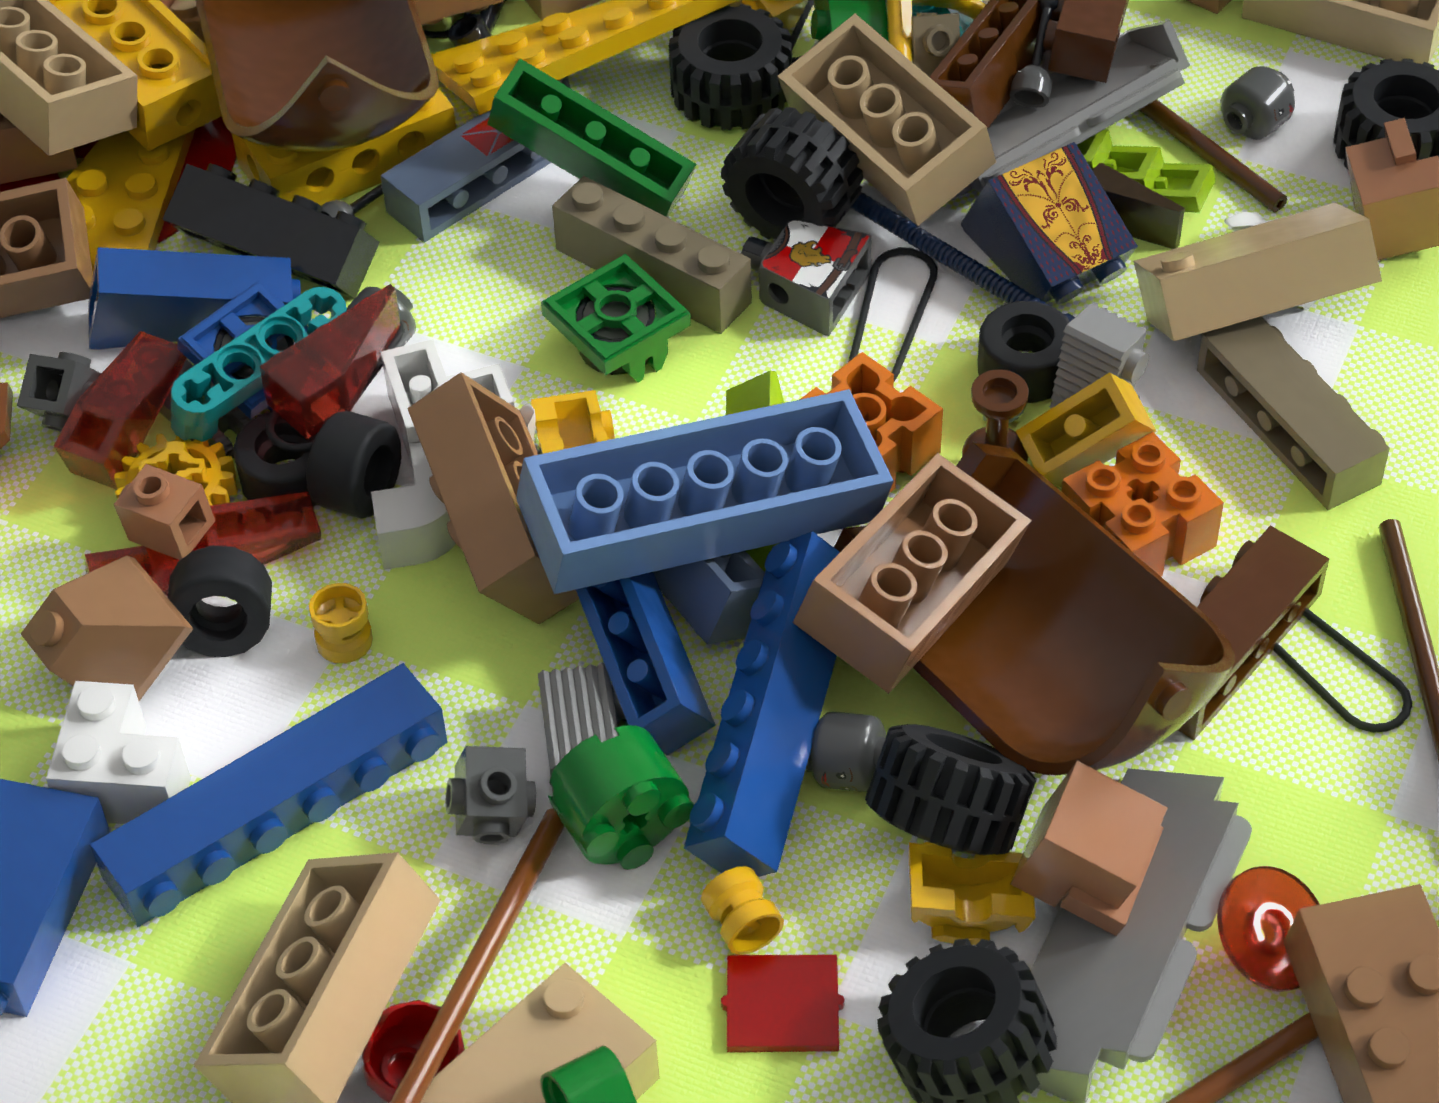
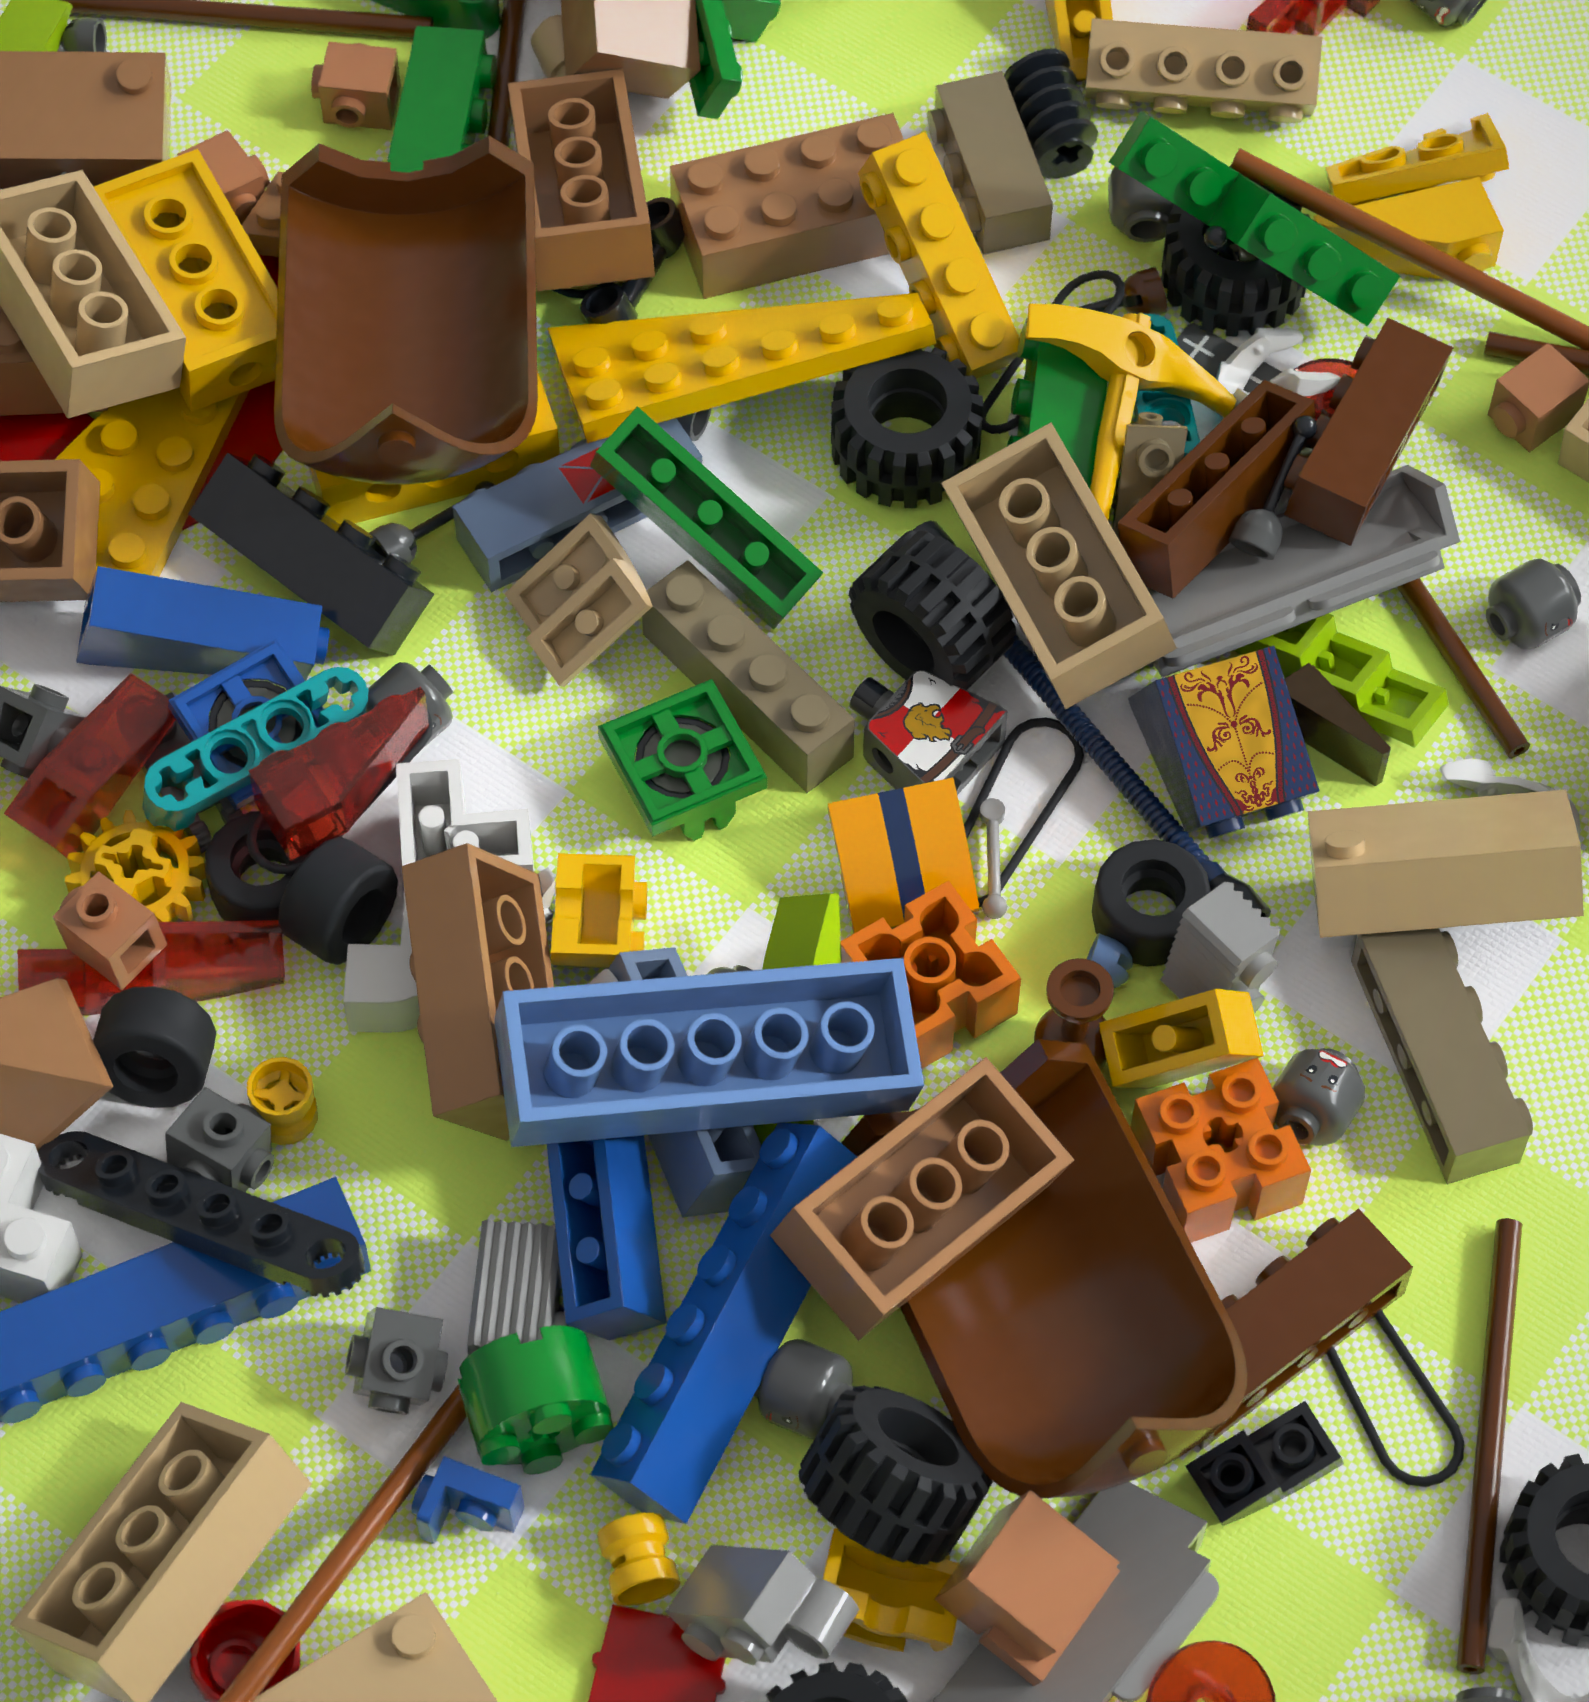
camera: 10 degrees right, 10 degrees up
(293, 710) = (201, 1213): none -> black plate
(295, 664) = (221, 1142): none -> dark grey brick
(500, 222) = (579, 599): none -> tan slope
(582, 888) = (474, 1494): none -> blue bracket
(810, 339) = (899, 848): none -> light orange slope
(860, 911) = (756, 1600): none -> light grey hinge
(877, 318) = (992, 814): none -> light grey hinge
(1211, 453) = (1318, 1094): none -> dark grey head
(1254, 737) = (1264, 1466): none -> black slope

